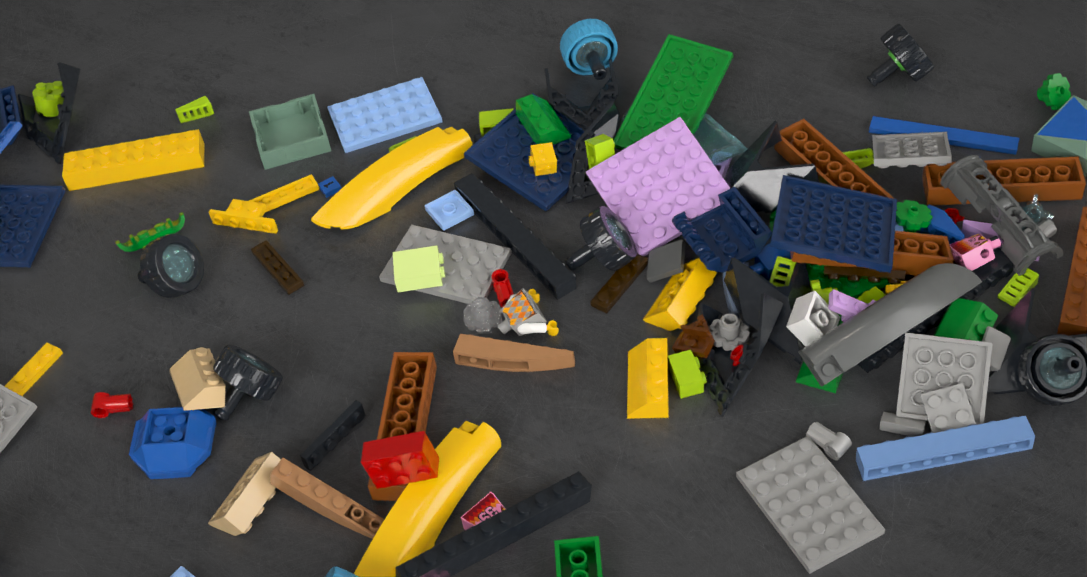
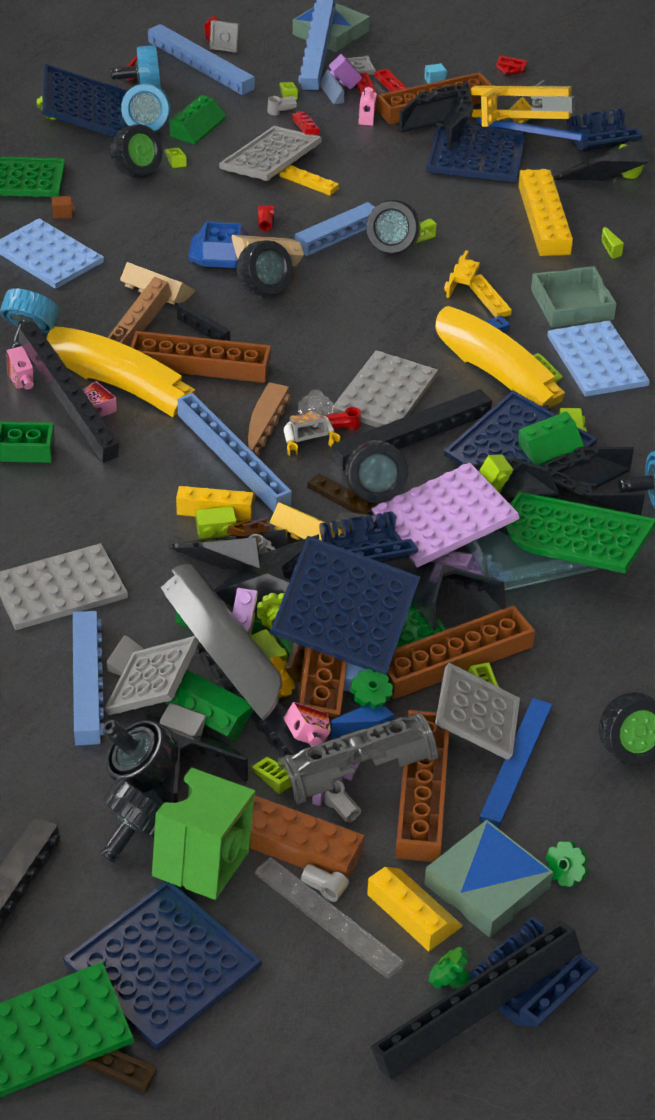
camera: 85 degrees right, 5 degrees down
(144, 331) = (334, 229): none -> medium blue brick
(146, 236) = (444, 224): green plate -> none
(277, 267) = (398, 294): dark brown plate -> none
(400, 459) = (137, 330): red brick -> none
(418, 268) = (370, 363): yellowish green brick -> none
(449, 210) = (450, 389): light blue plate -> none
(543, 159) = (498, 441): yellow head -> none
(572, 371) = (233, 452): none -> medium blue brick
(811, 318) = (234, 579): white brick -> none
(833, 443) = (113, 606): light grey piece -> none
(948, 408) = (123, 679): light grey plate -> none
(1039, 209) = (372, 800): clear light blue brick -> none

